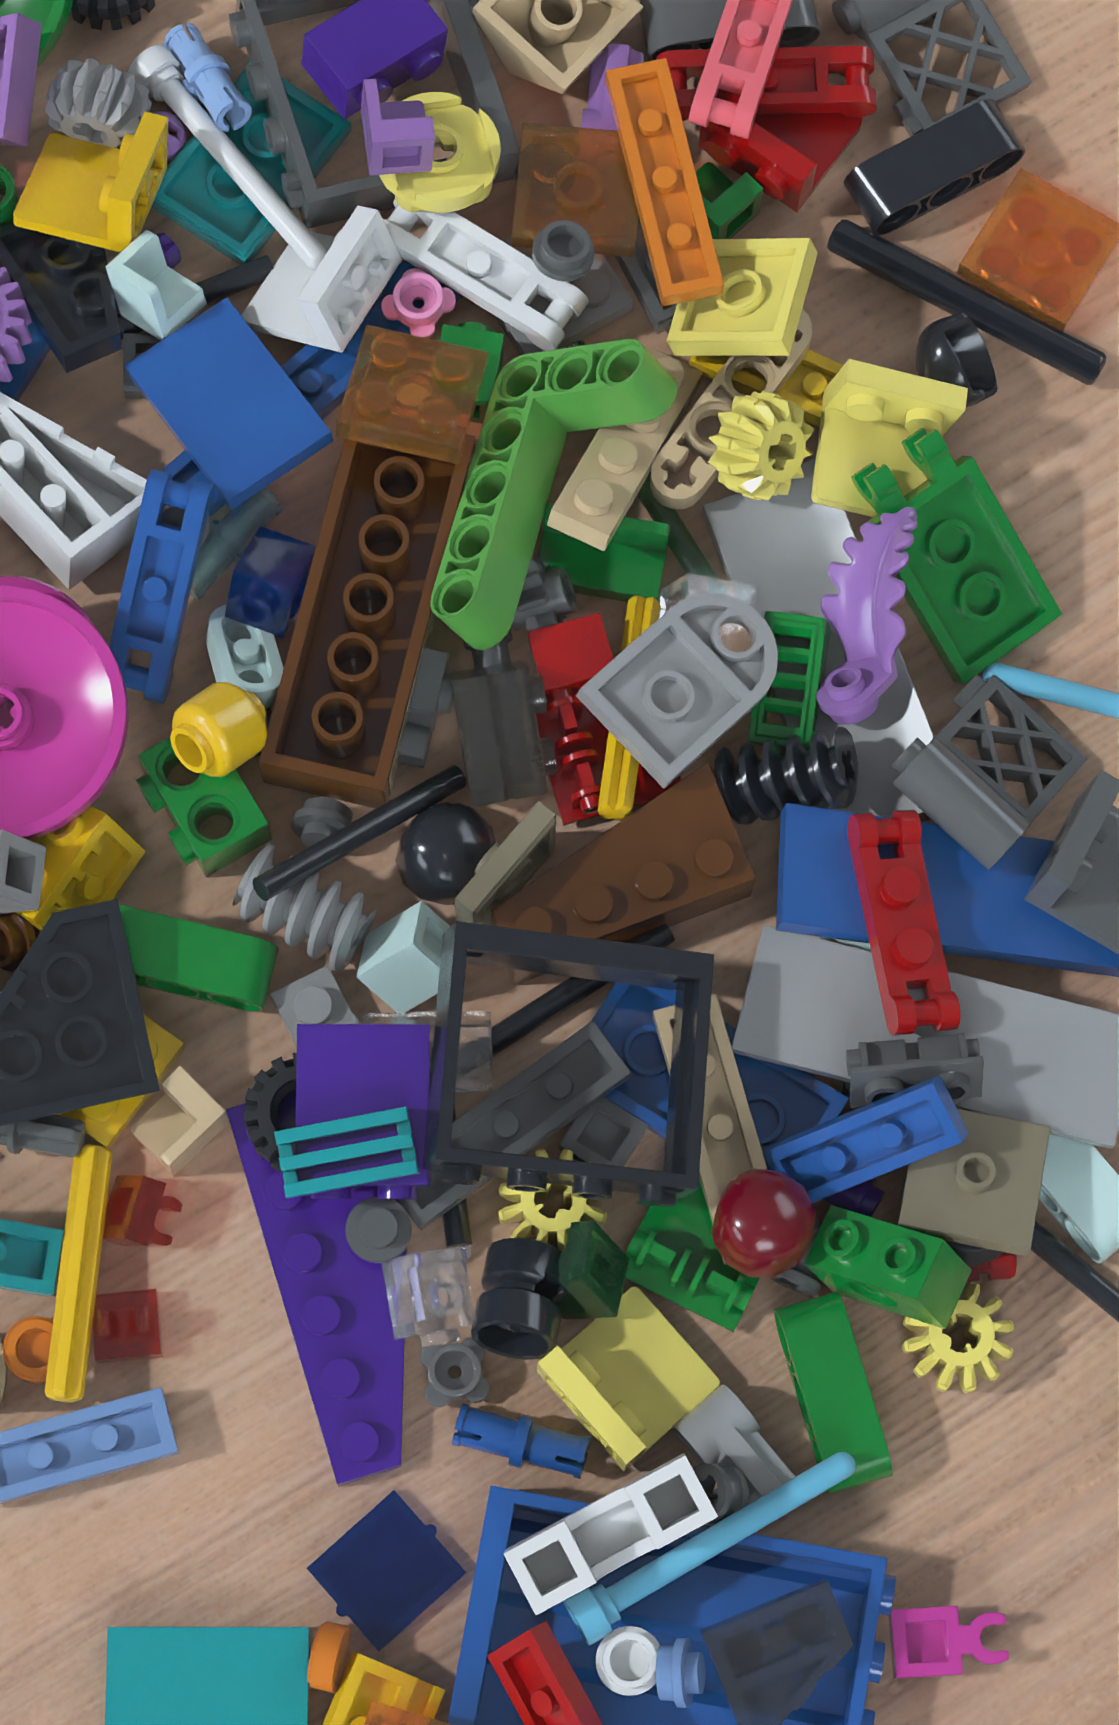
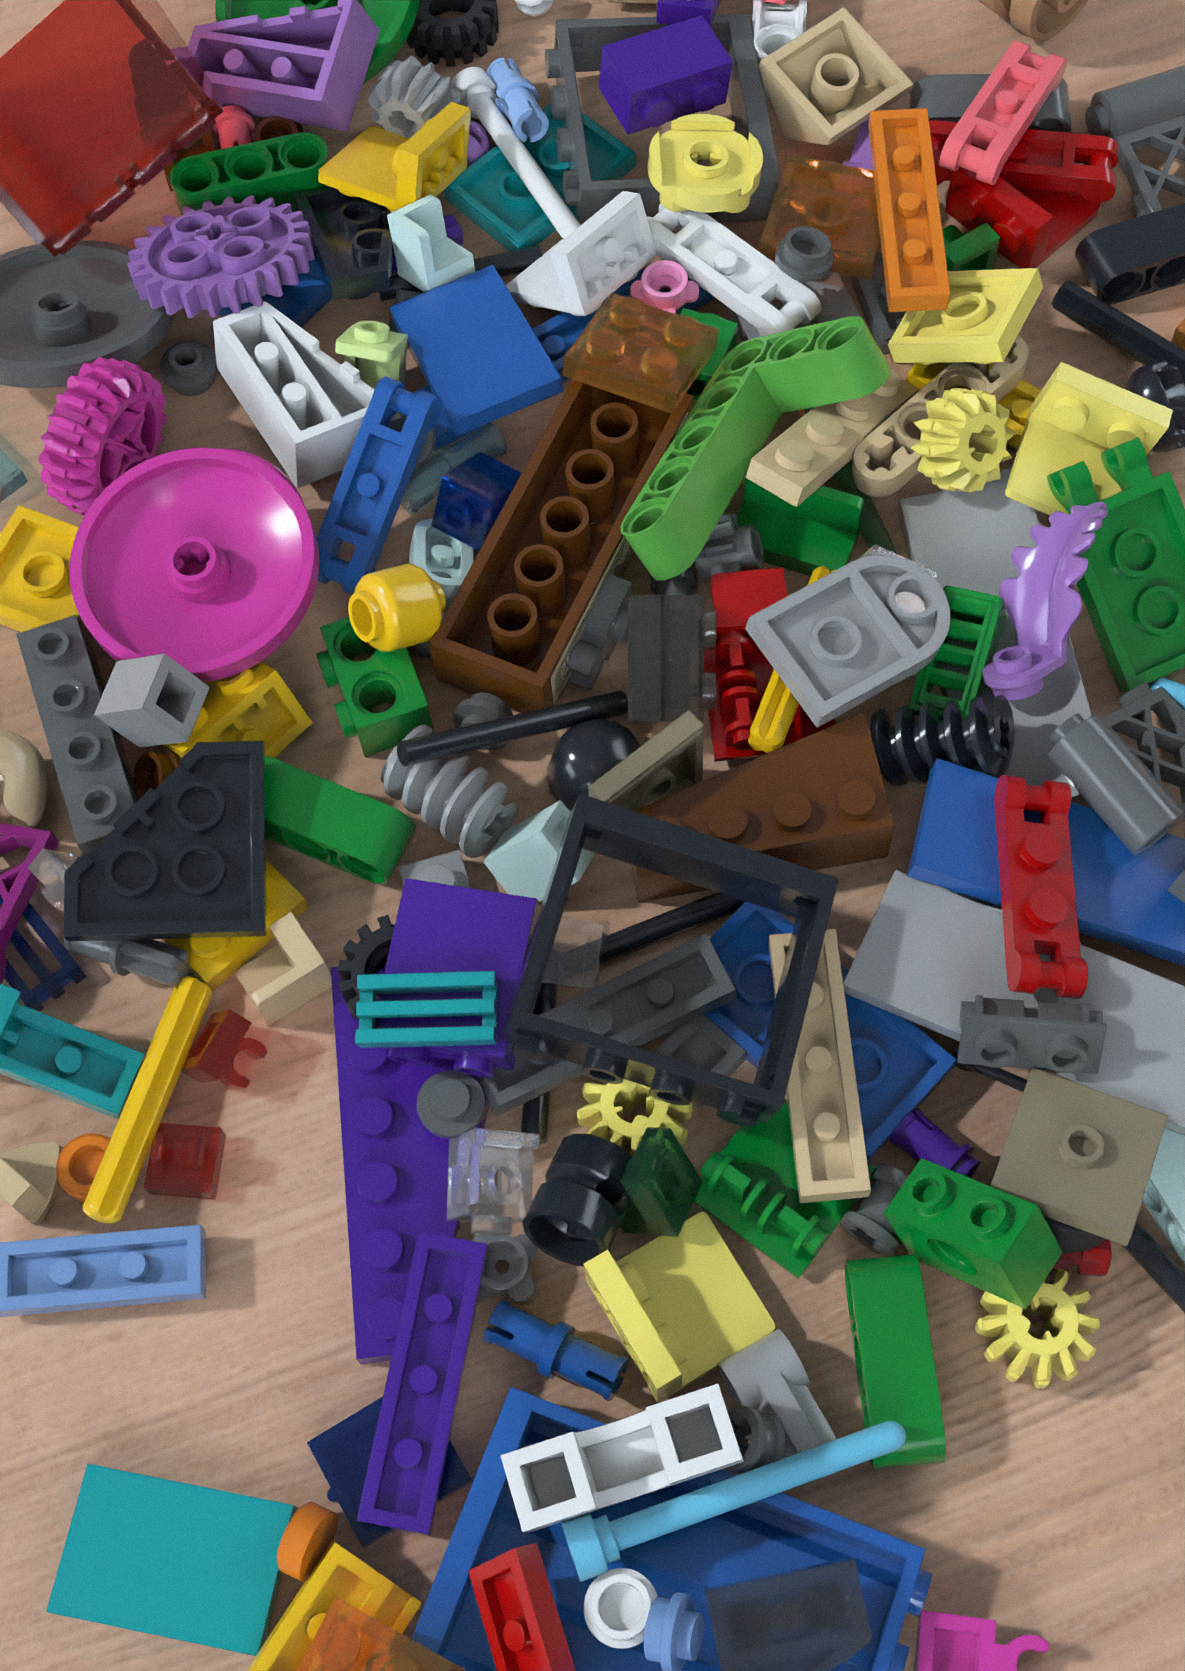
camera: 20 degrees right, 10 degrees down
(123, 429) = (374, 351): none -> yellowish green bracket
(395, 134) = (668, 134): medium lavender panel -> none
(408, 1495) = (423, 1383): none -> dark purple plate
(763, 1223) = (847, 1162): dark red hair -> none
(870, 1140) = (969, 1097): blue plate -> none

